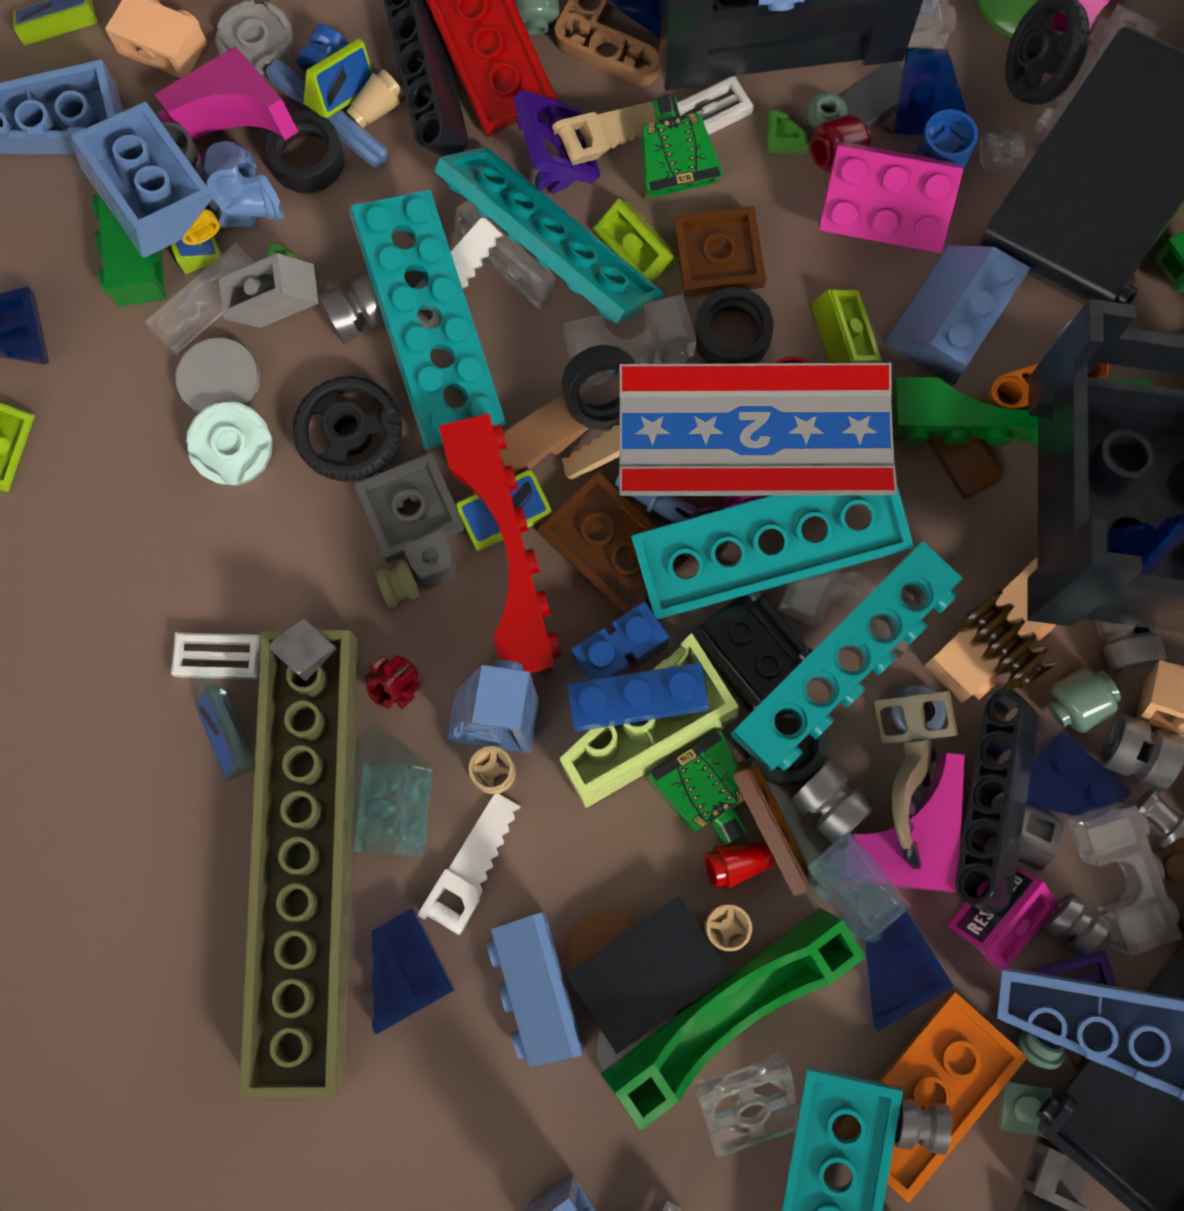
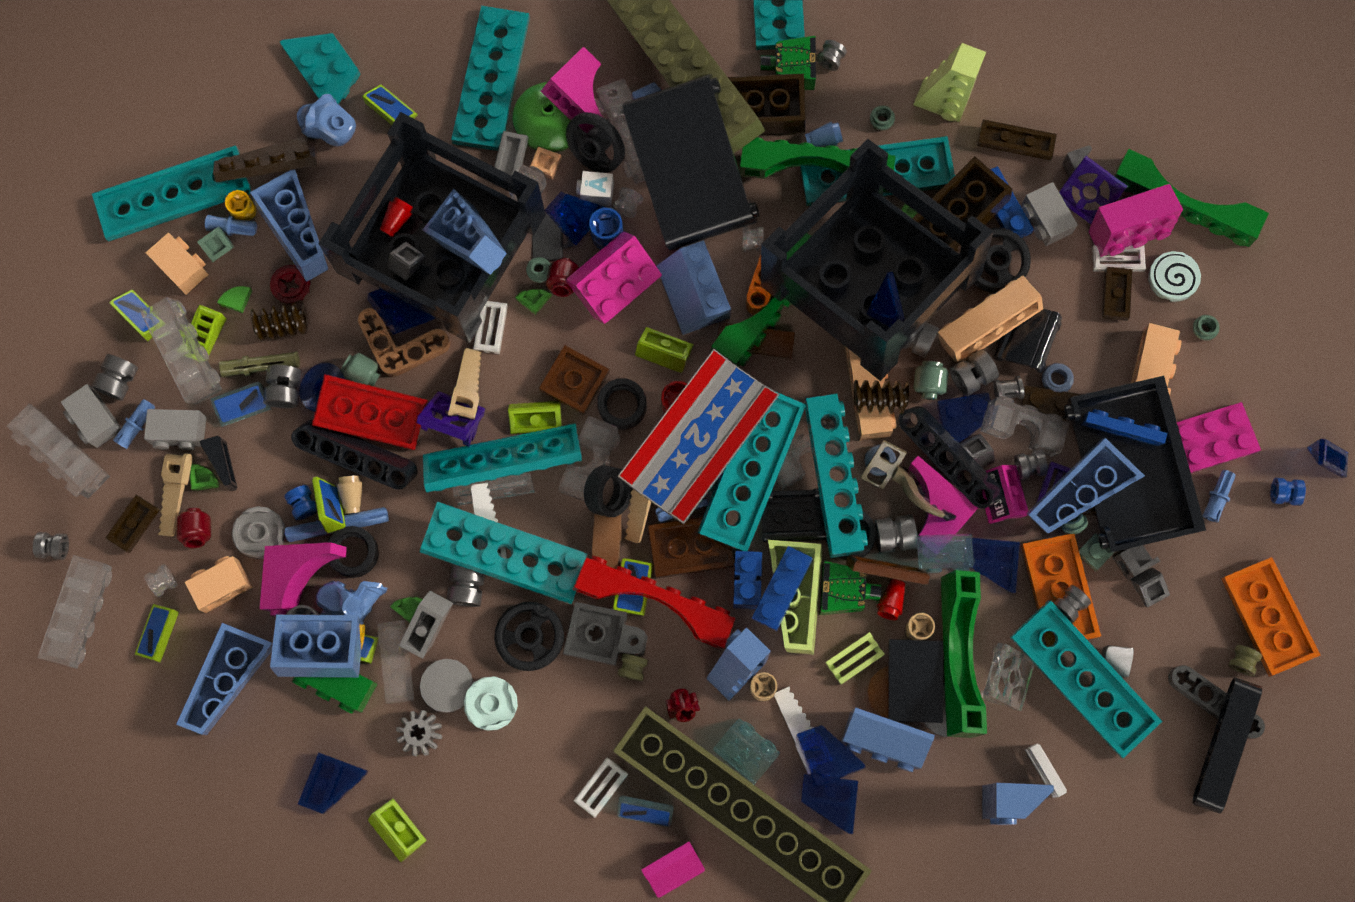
camera: 55 degrees left, 0 degrees up
(124, 372) = (414, 742): none -> light grey gear
(170, 823) = (673, 869): none -> dark pink panel
(302, 648) = (639, 735): flat silver slope -> none
(456, 923) = (827, 756): none -> clear blue wing
(586, 855) = (873, 646): none -> yellowish green tile
(676, 151) = (505, 362): green torso -> none
(972, 26) = (546, 161): none -> light nougat tile
(990, 99) = (596, 187): none -> white brick

